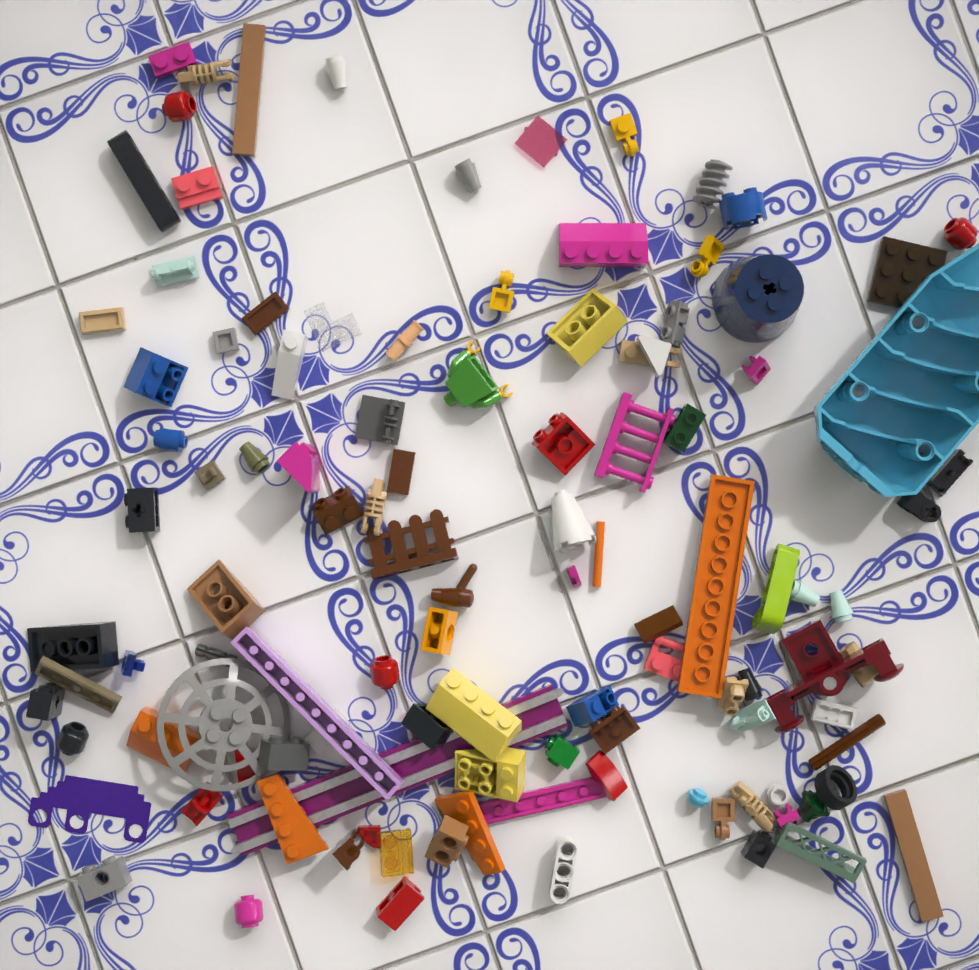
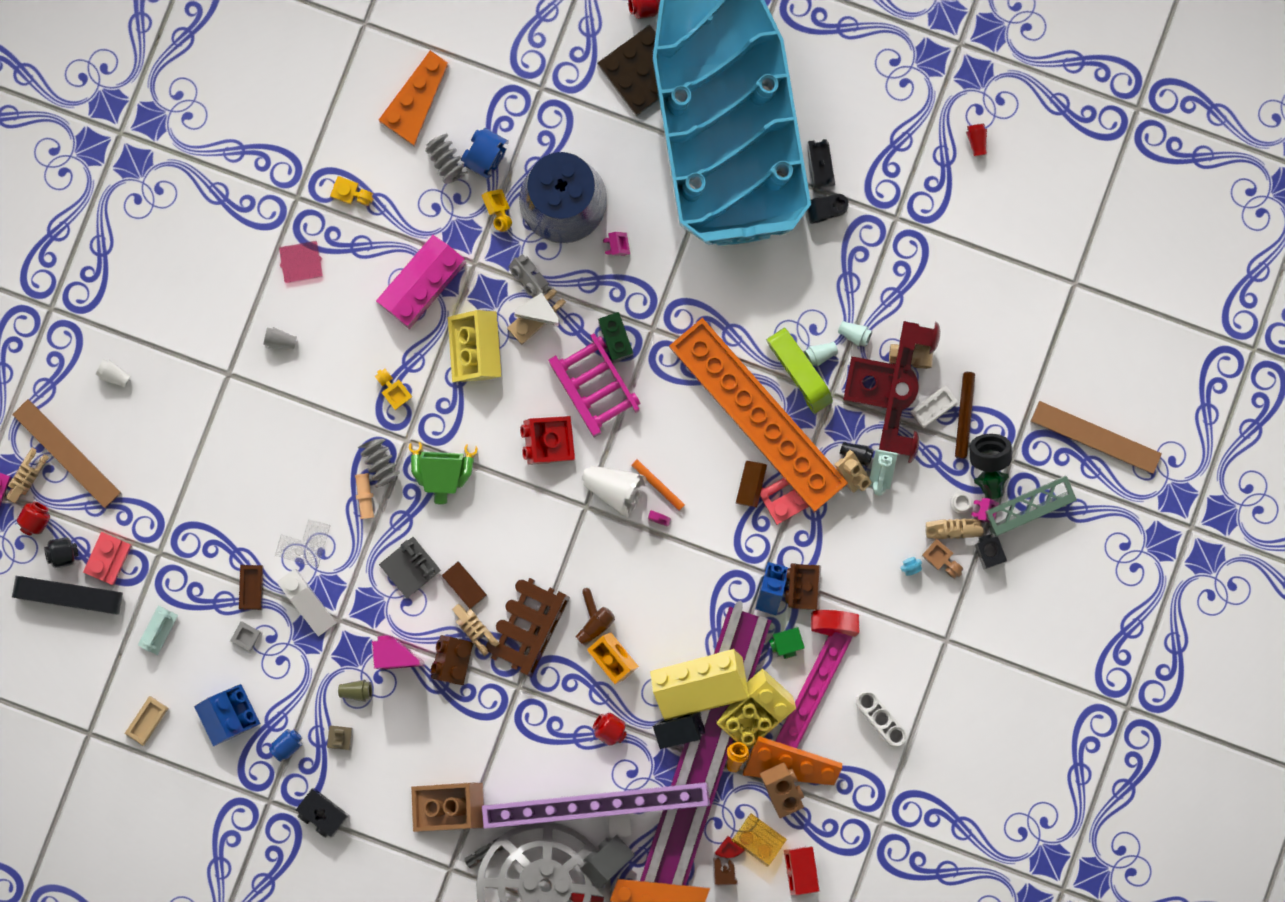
camera: 55 degrees left, 5 degrees down
(171, 149) = (61, 552): none -> black head
(439, 330) = (379, 462): none -> light grey piece
(444, 785) = (736, 755): none -> light orange cone
(737, 121) = (410, 106): none -> orange wing

